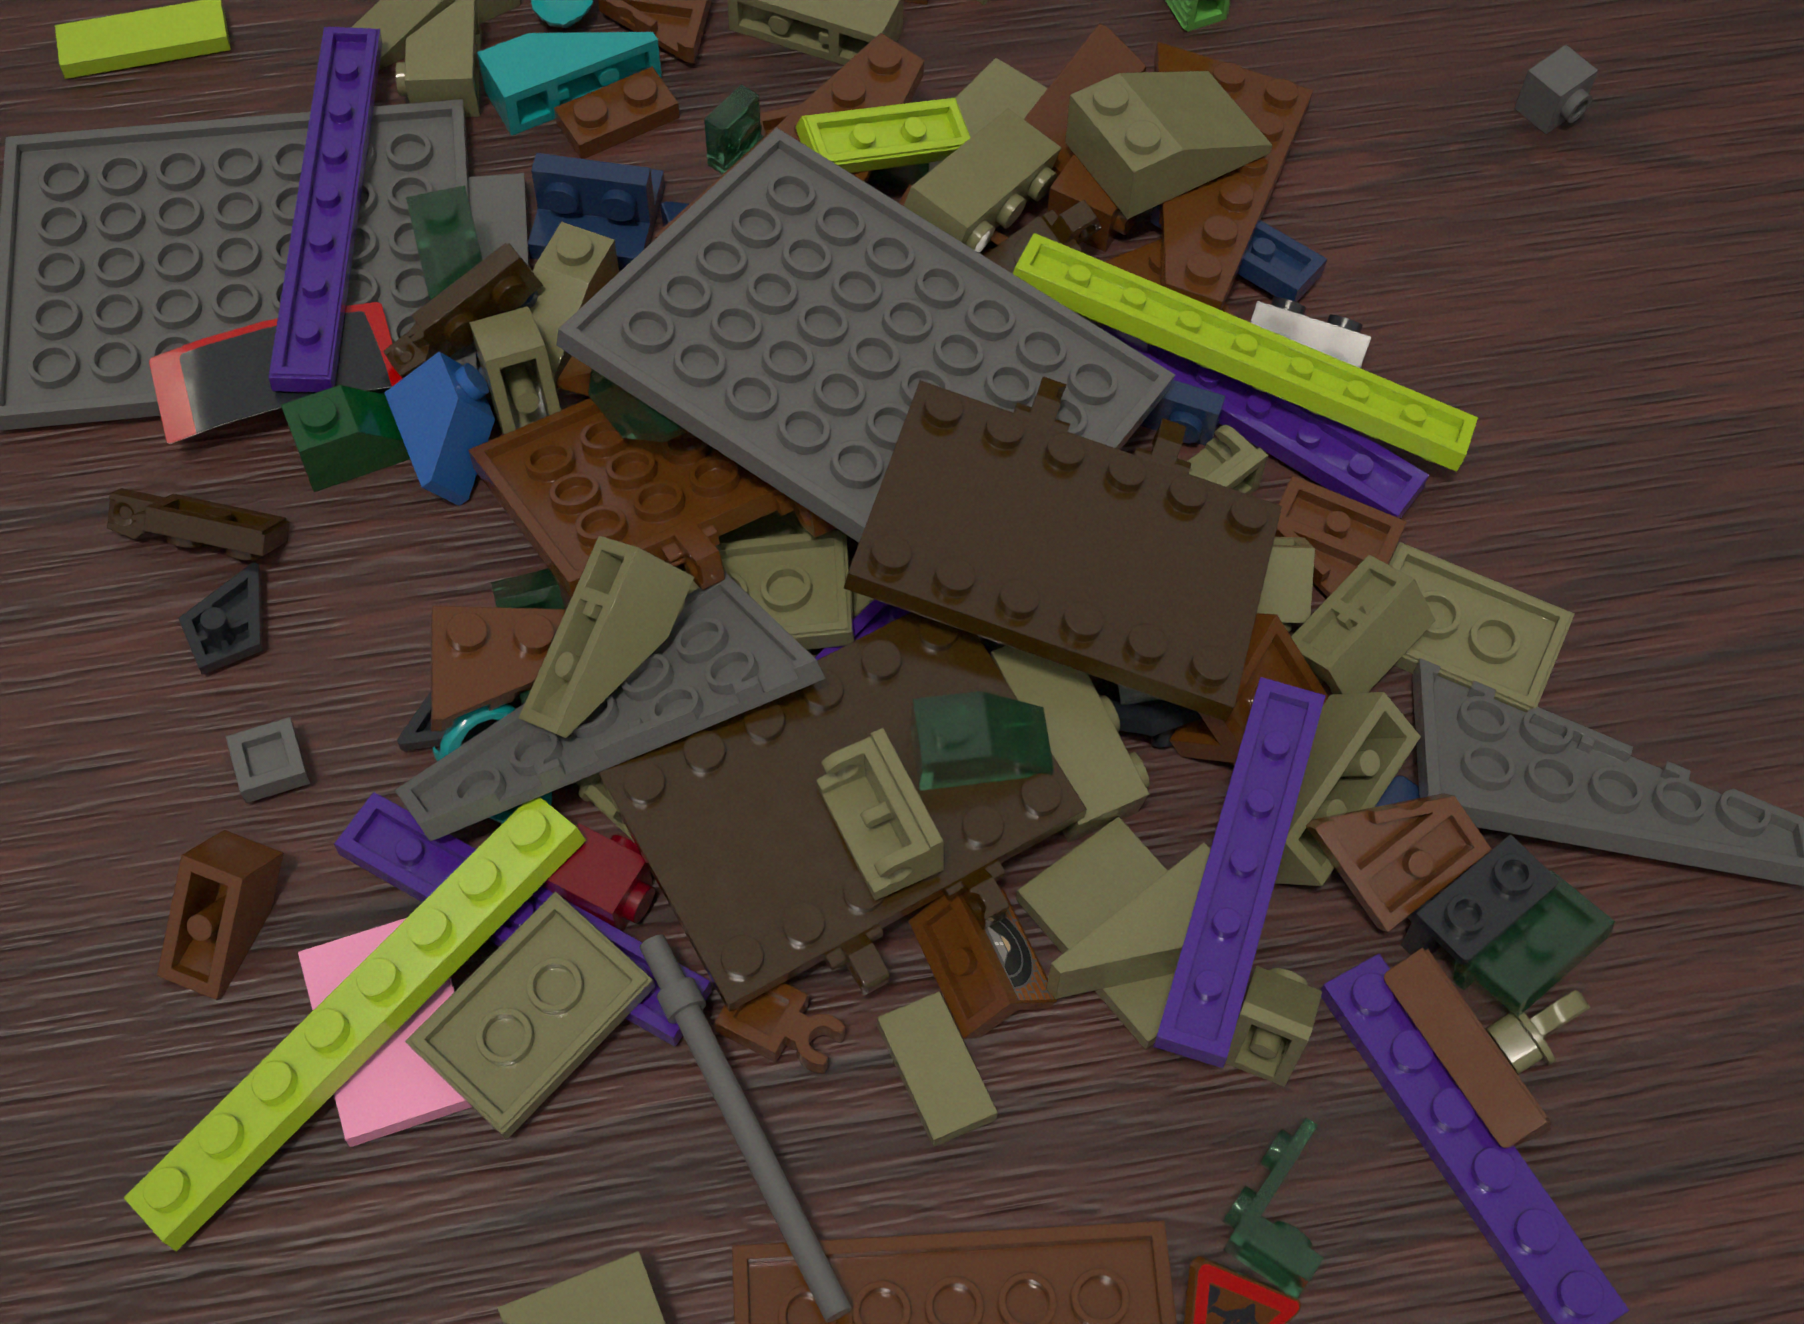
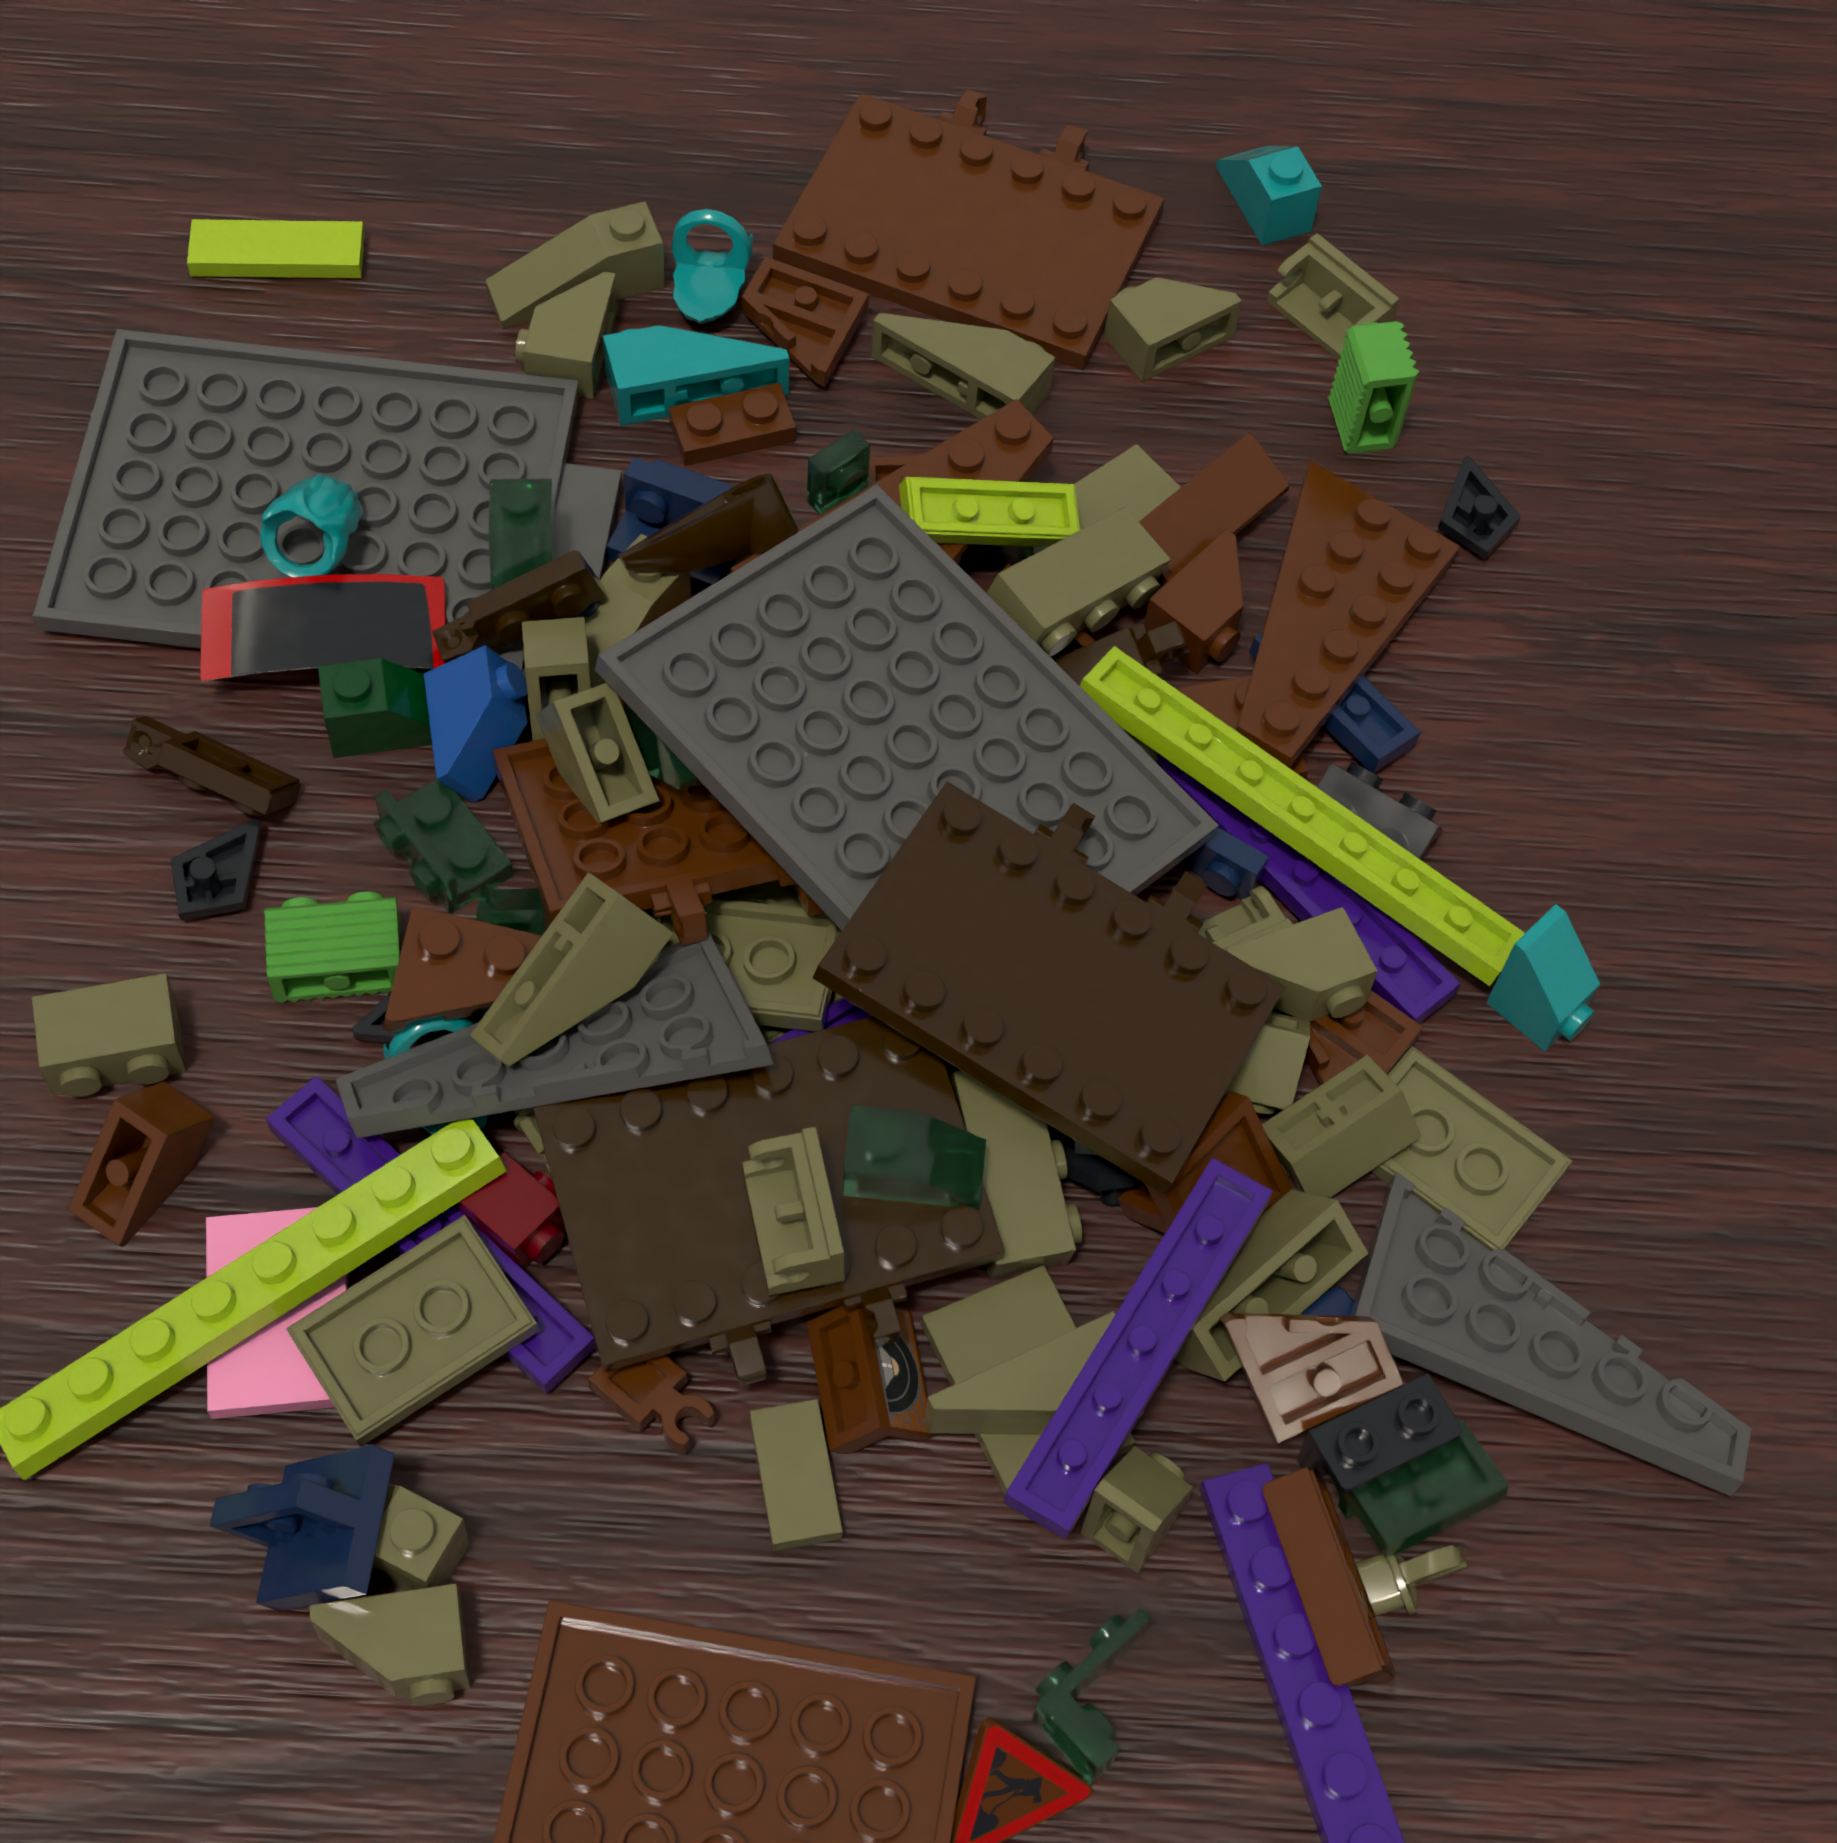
camera: 10 degrees right, 0 degrees up
(157, 798) = (108, 1035): none -> olive brick
(253, 252) = (328, 505): none -> teal piece
(267, 760) = (222, 1020): dark grey plate -> none
(326, 212) = (412, 472): dark purple tile -> none
(360, 667) = (332, 947): none -> bright green brick
(441, 549) = (443, 844): none -> clear green bracket
(483, 1227) = (315, 1524): none -> dark blue bracket
(559, 1217) = (417, 1541): none -> olive slope
(573, 426) = (597, 752): none -> olive slope
(641, 199) = (732, 525): none -> dark brown piece
(683, 1005) = (561, 1355): dark grey bar -> none
(1159, 135) = (1277, 567): olive slope -> none
(1303, 478) = (1317, 963): none -> olive slope
(1318, 57) = (1477, 511): none -> black piece
(1508, 457) = (1547, 982): none -> teal slope
(1556, 90) = (1719, 598): dark grey plate -> none

